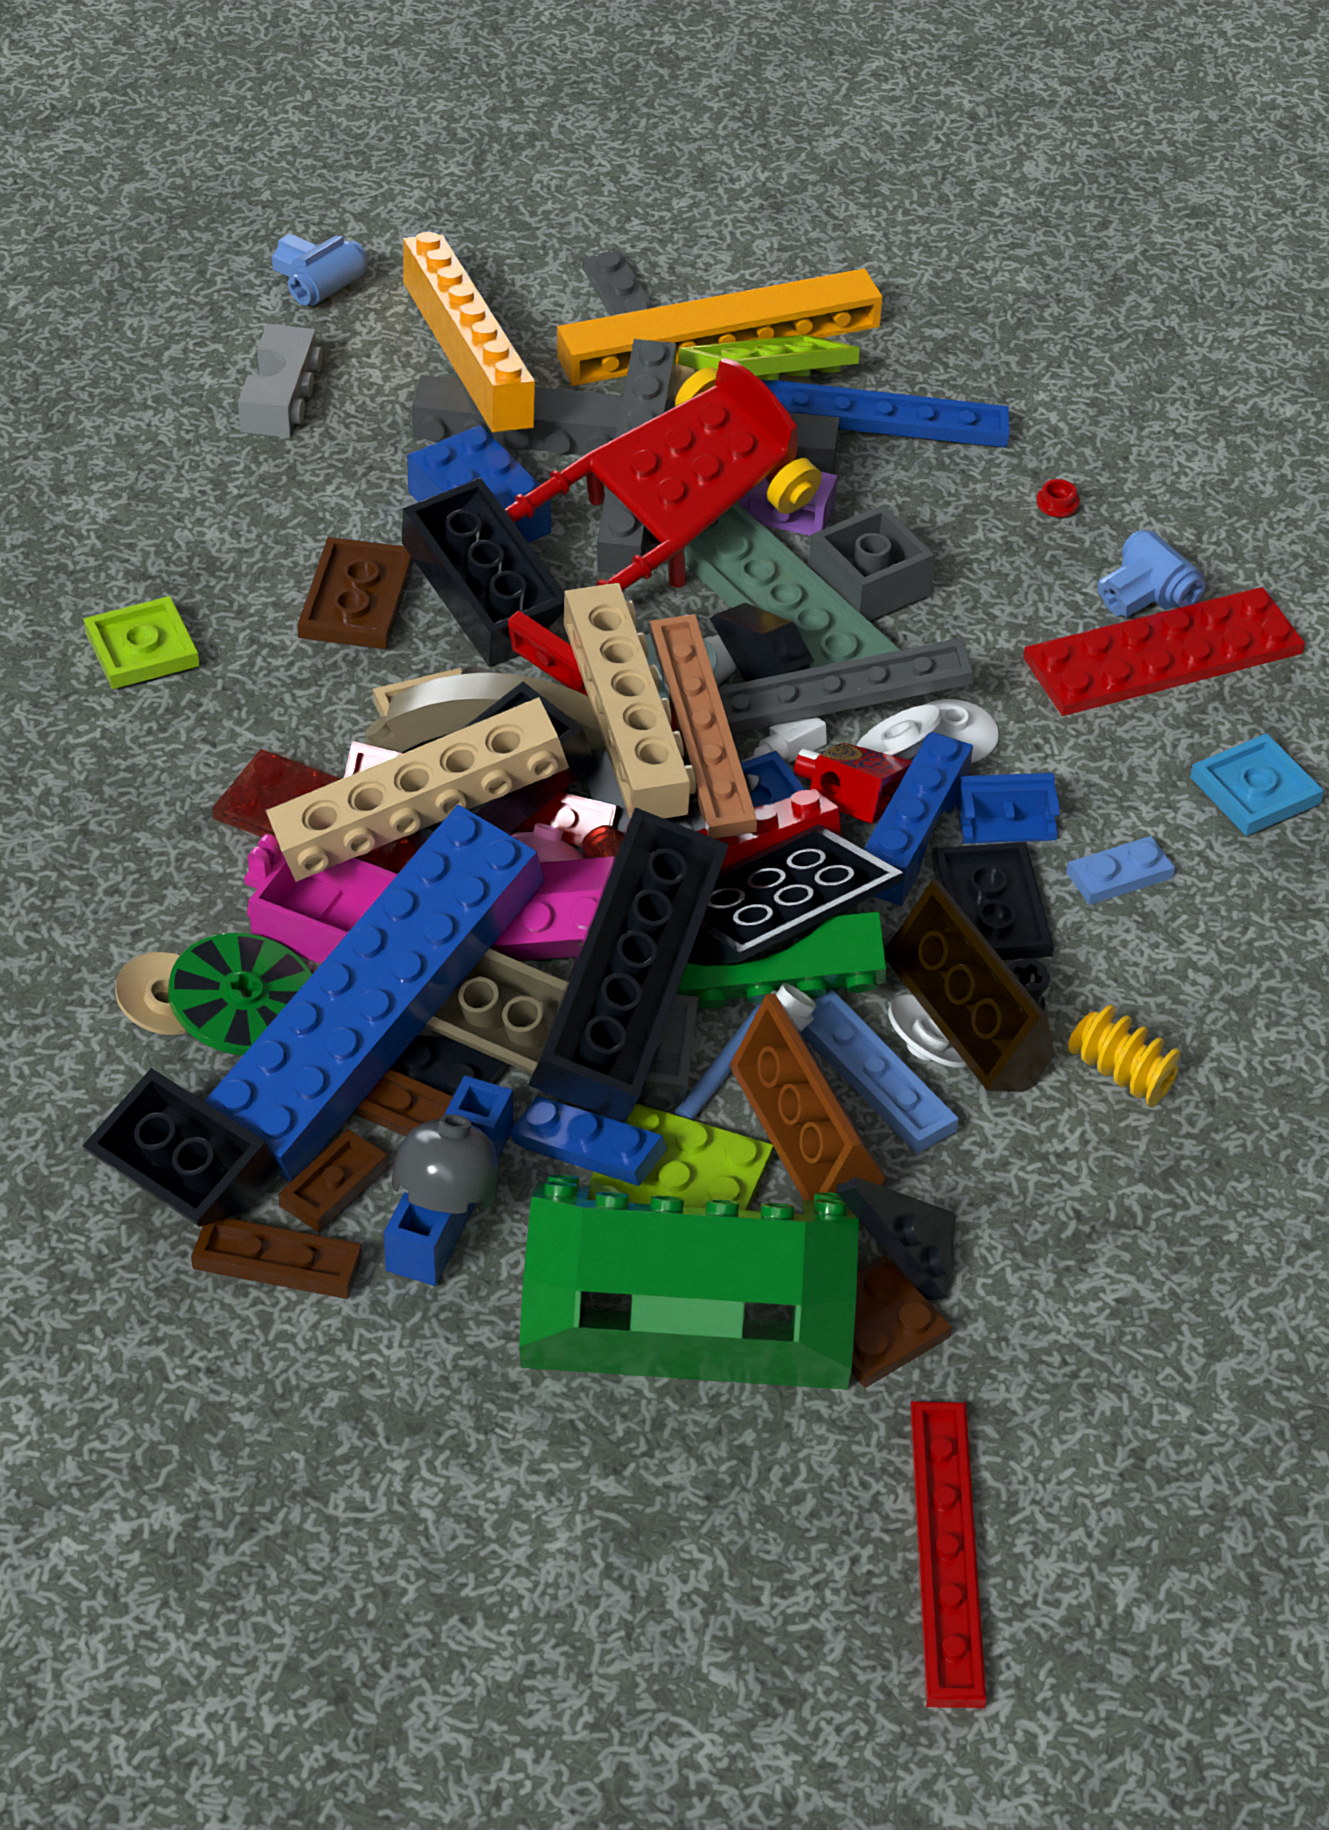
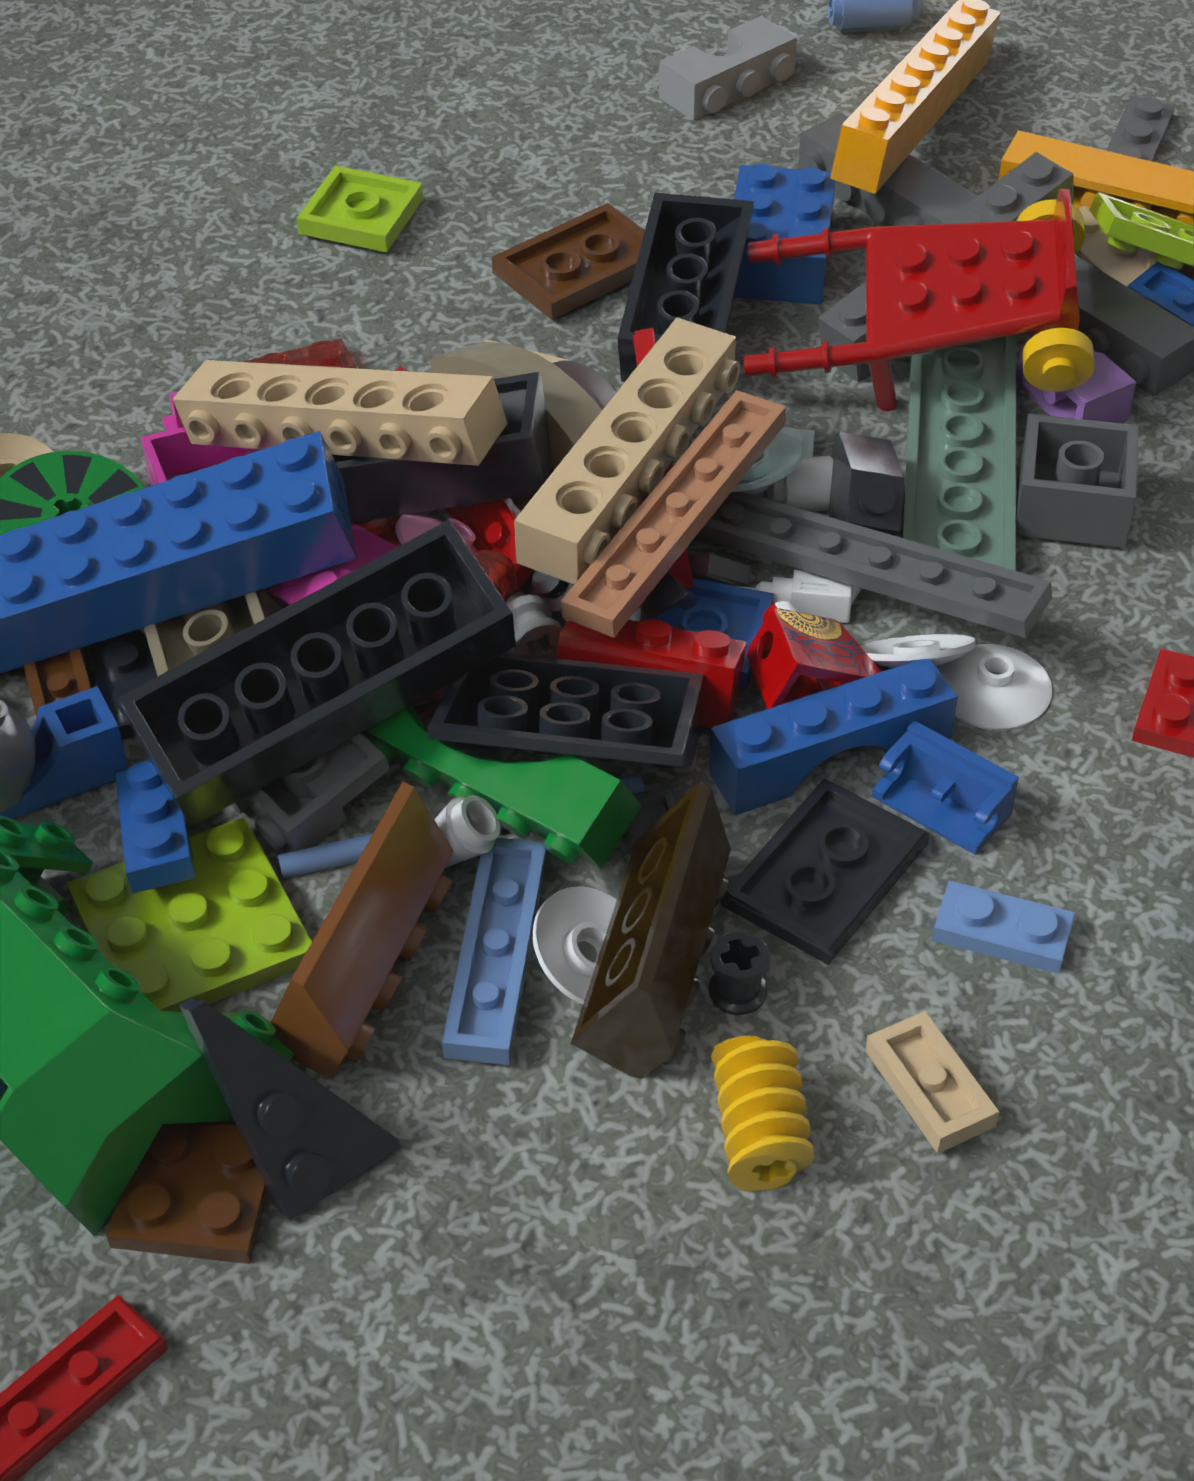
camera: 45 degrees right, 0 degrees up
(1184, 979) = (931, 1082): none -> tan plate

